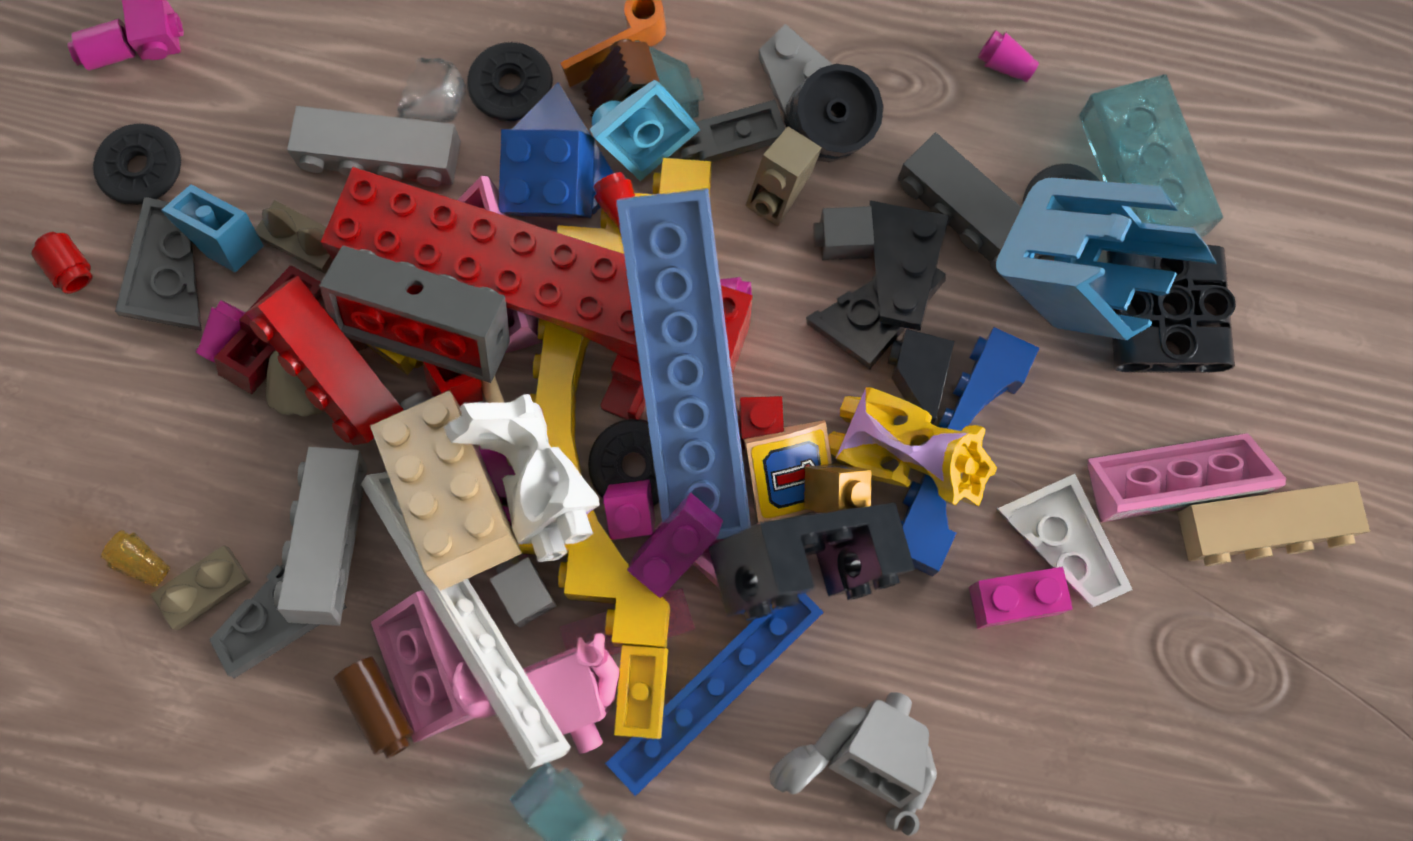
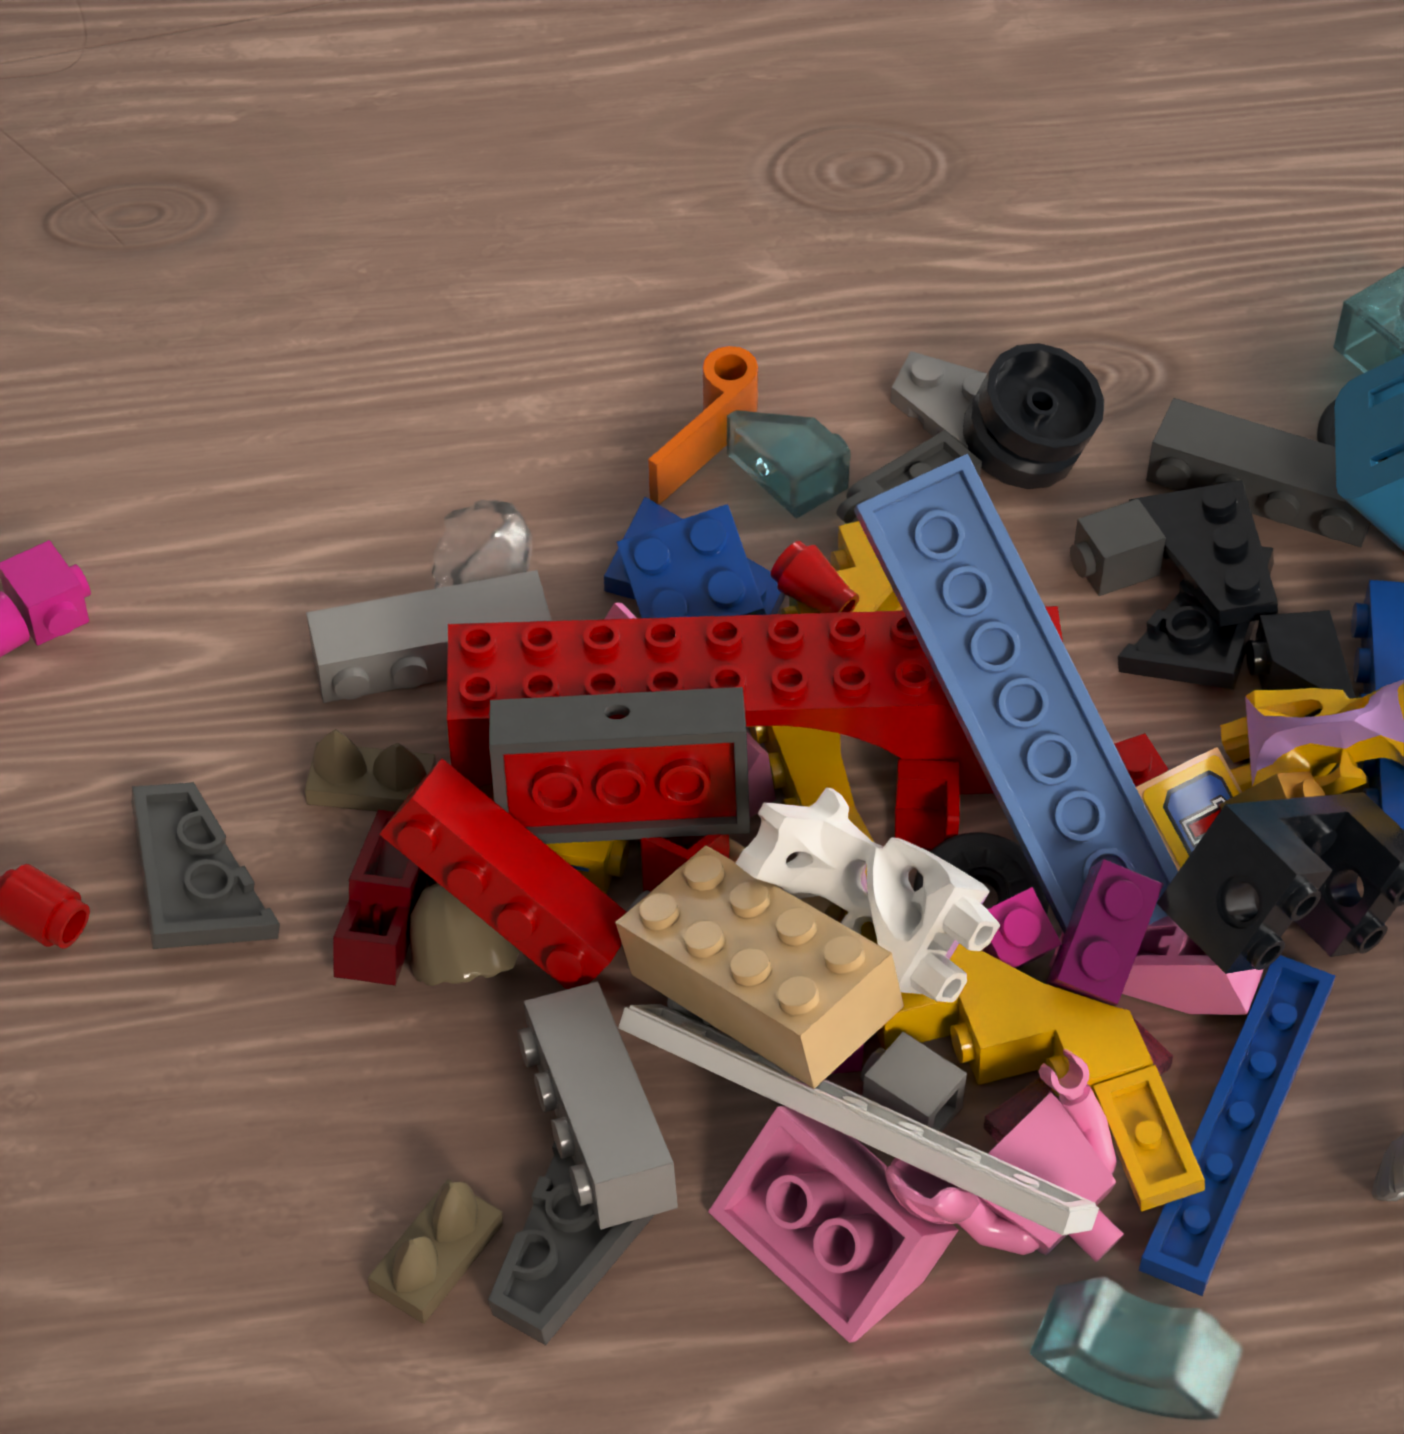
camera: 20 degrees left, 25 degrees down
(127, 142) = (81, 793): black wheel -> none
(134, 558) = (323, 1240): clear yellow cone -> none
(214, 227) = (254, 790): dark azure slope -> none
(219, 329) = (315, 914): dark pink cone -> none
(374, 707) = (774, 1305): reddish brown brick -> none
(508, 59) = (576, 490): black wheel -> none
(620, 73) = (740, 459): reddish brown brick -> none
(643, 128) = (796, 493): medium azure slope -> none
(782, 175) = (1012, 477): dark tan slope -> none
(1008, 57) = (1212, 306): dark pink cone -> none

